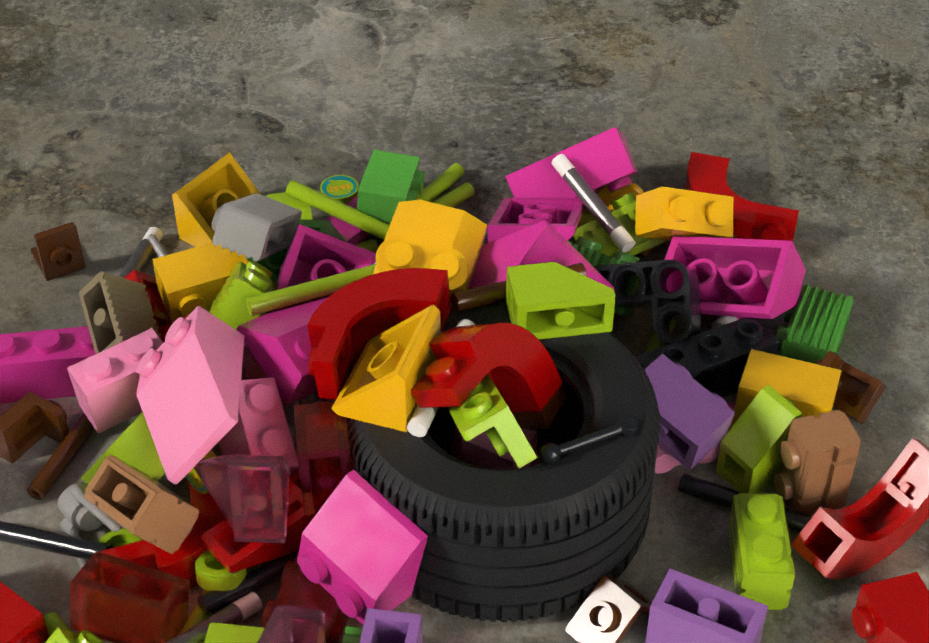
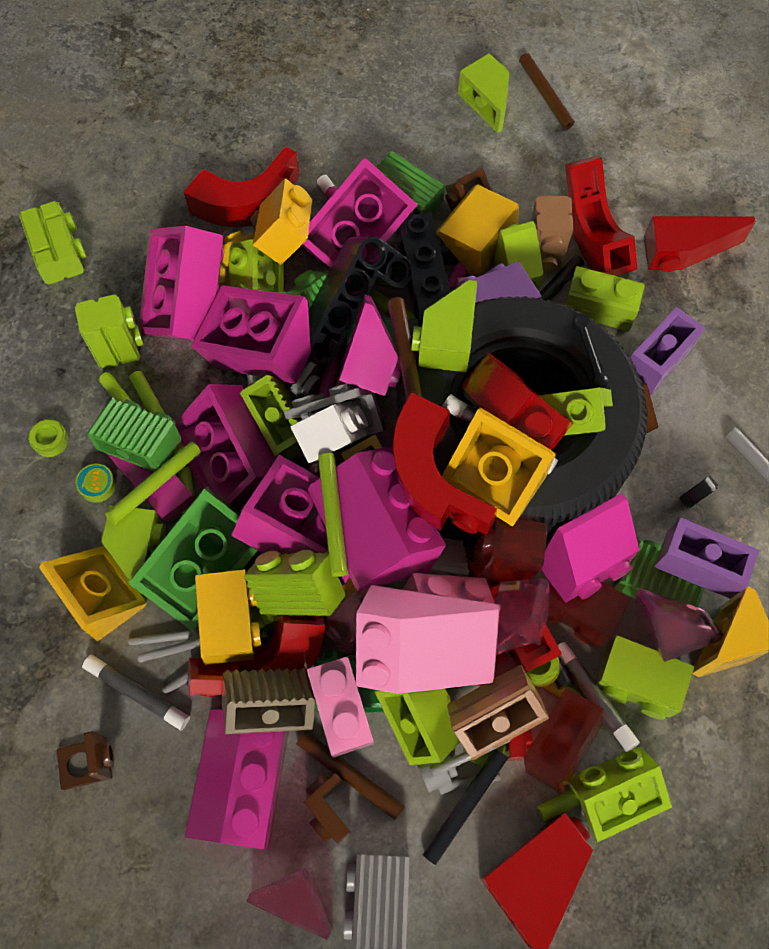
camera: 75 degrees left, 25 degrees up
(255, 226) = (210, 551): light grey brick -> none
(374, 142) = (48, 438): none -> lime tile
(432, 238) = (347, 408): yellow slope -> none
(495, 141) = (109, 331): none -> lime brick
(587, 93) = (52, 242): none -> lime brick
(593, 203) = (241, 279): flat silver bar -> none

